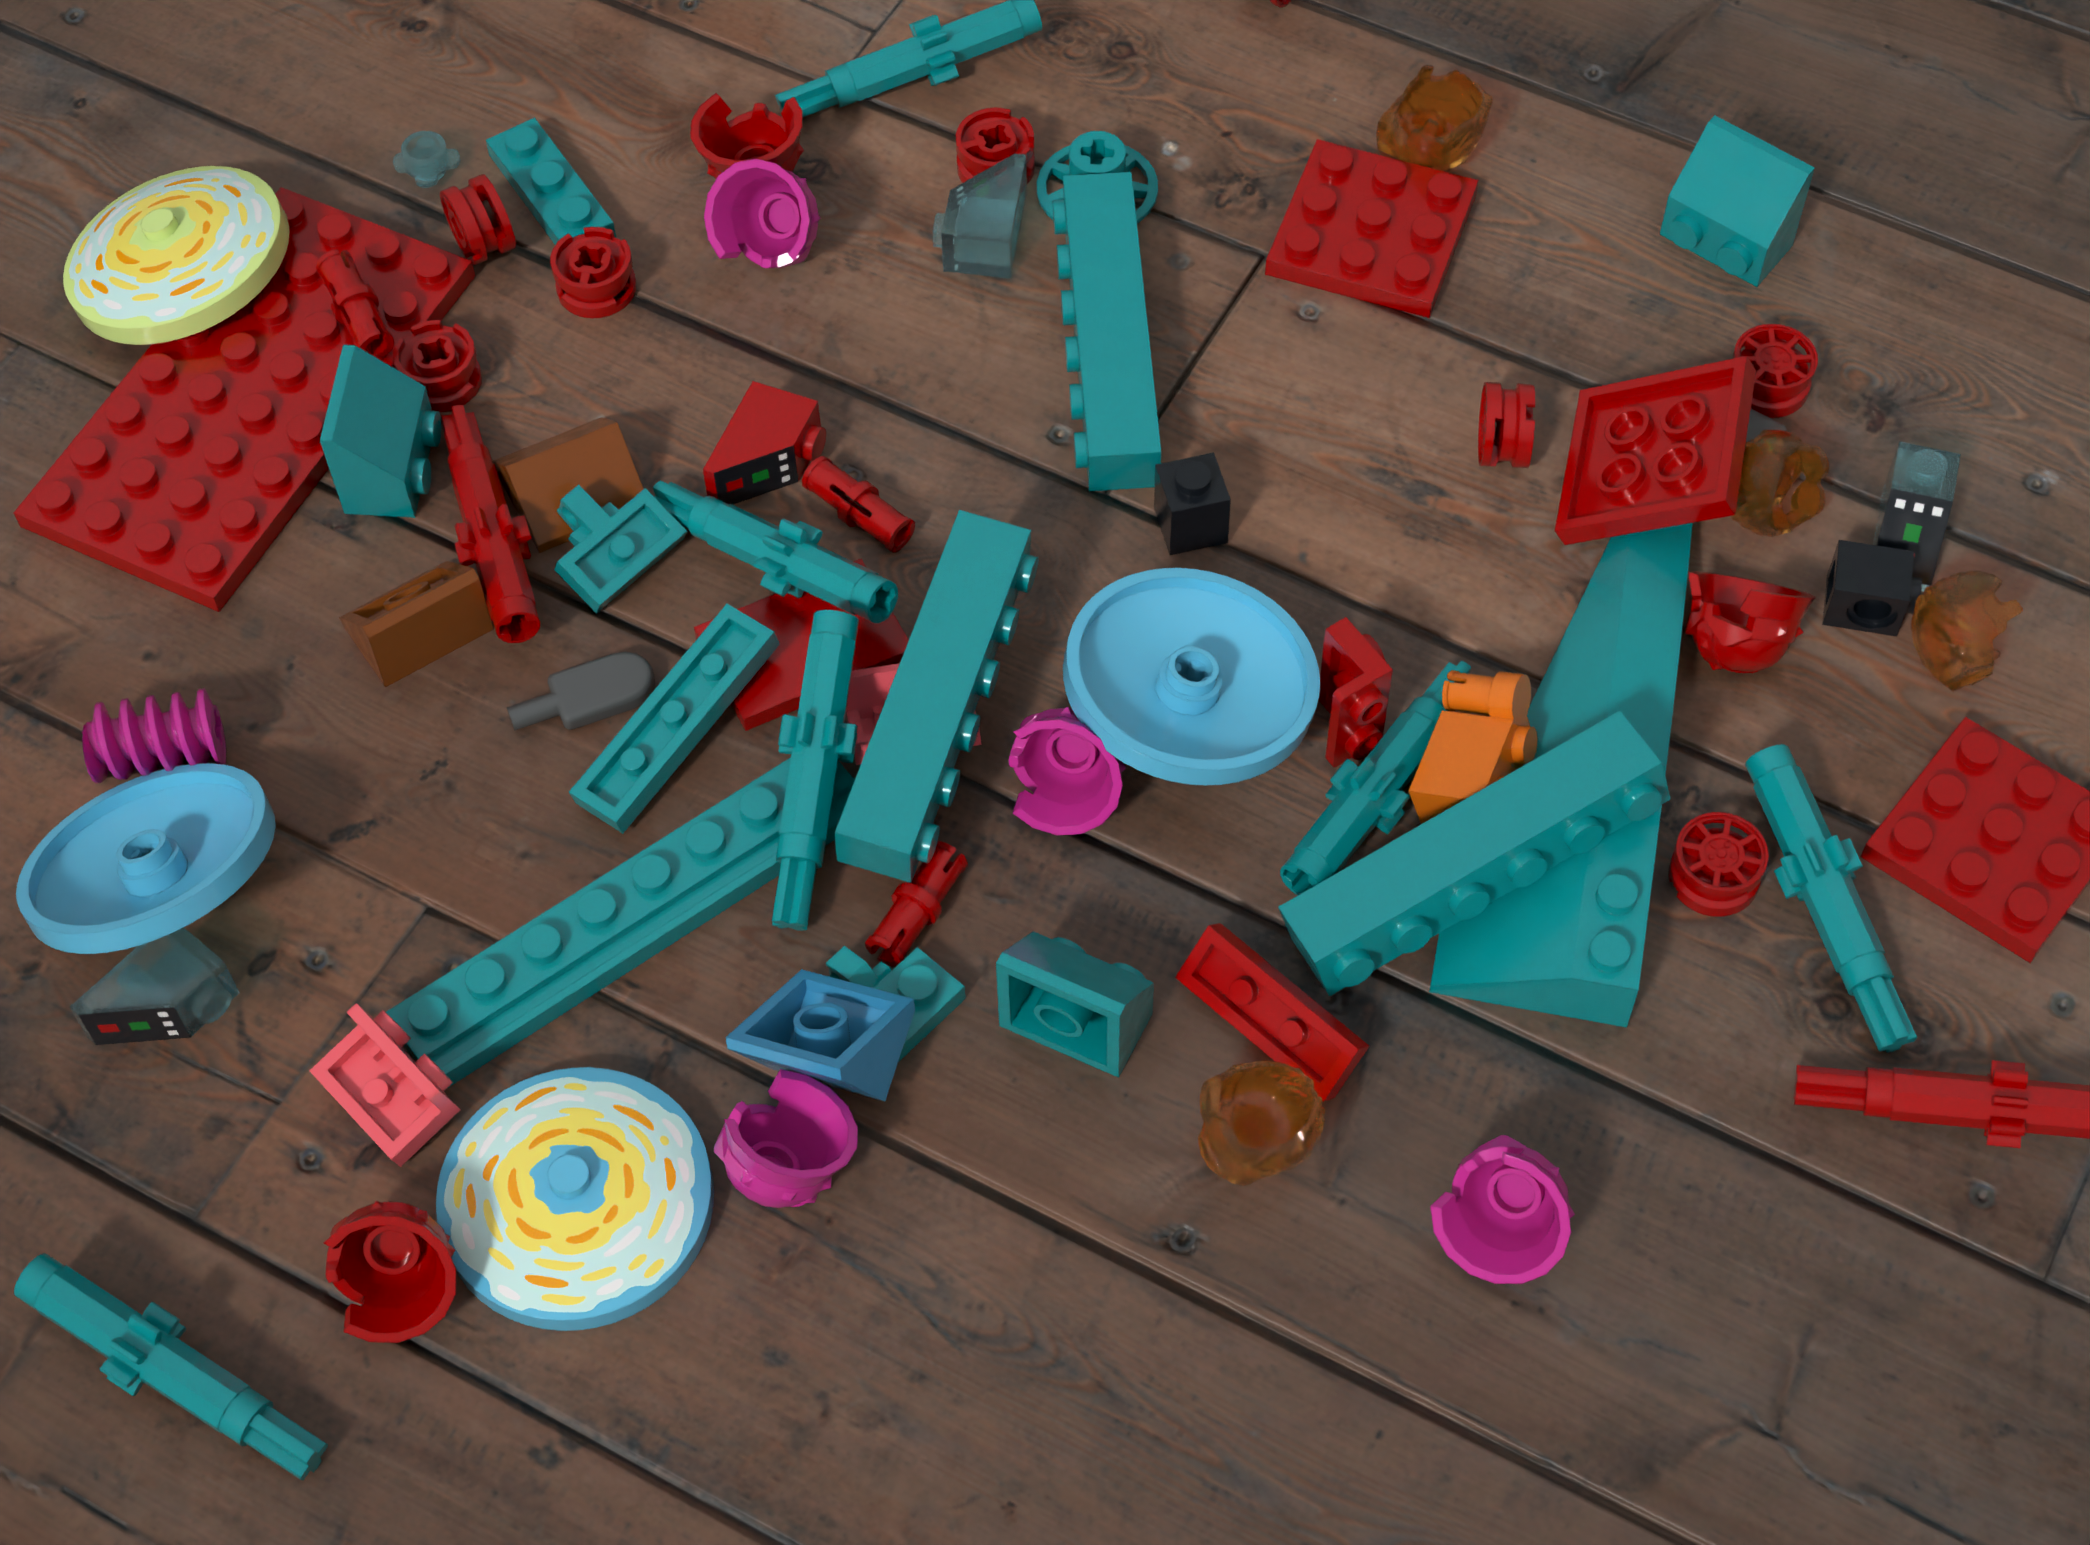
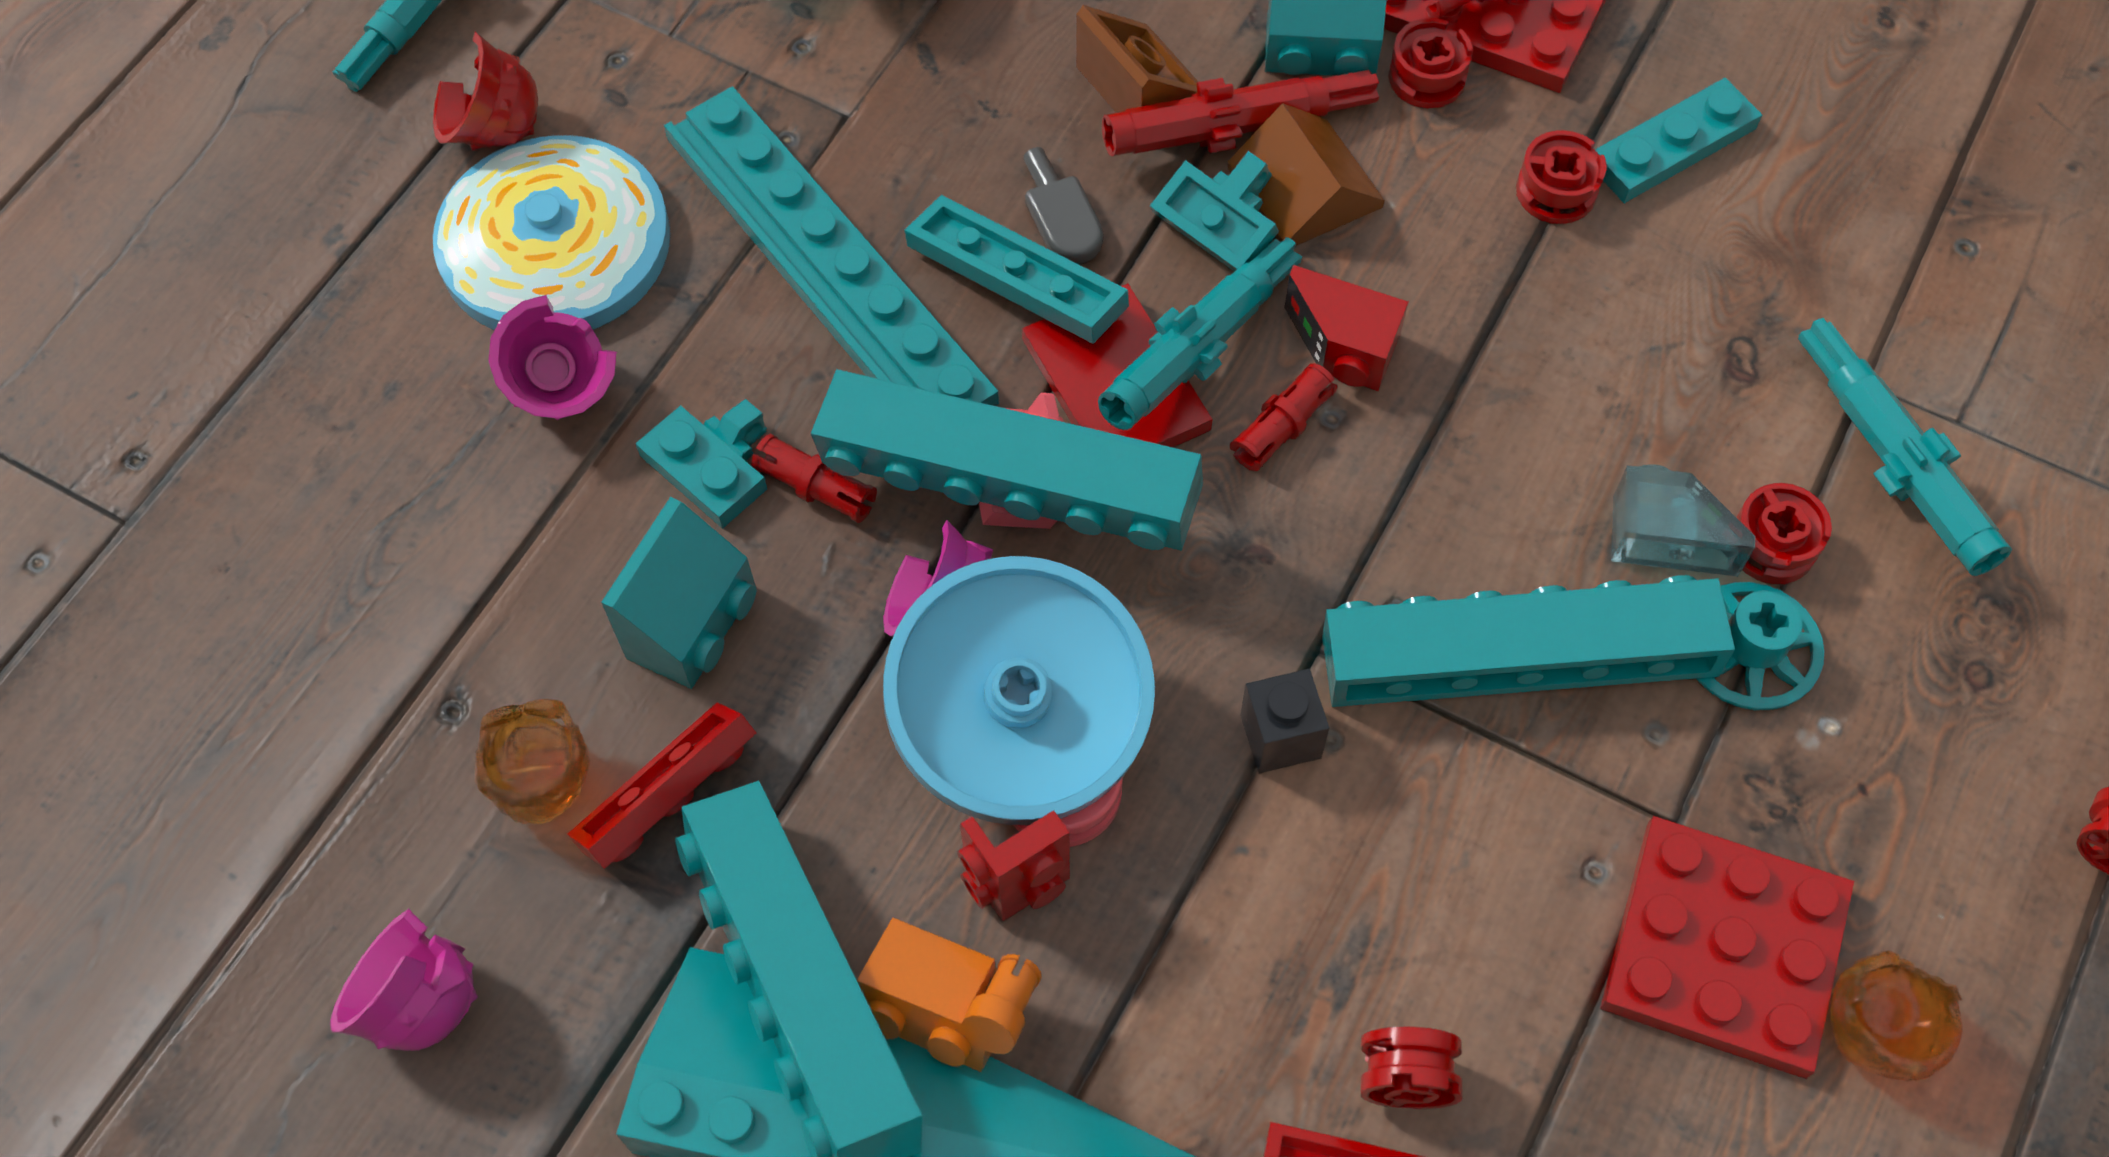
camera: 90 degrees right, 5 degrees up
(384, 1088) = (658, 89): coral bracket -> none
(425, 158) = (1696, 34): clear light blue plate -> none
(478, 219) = (1605, 69): red wheel -> none
(748, 136) = (1724, 281): red helmet -> none
(762, 213) = (1646, 307): dark pink helmet -> none
(816, 744) = (956, 367): teal piece -> none
(830, 1032) = (647, 387): dark azure slope -> none
(1367, 793) = (909, 889): teal piece -> none

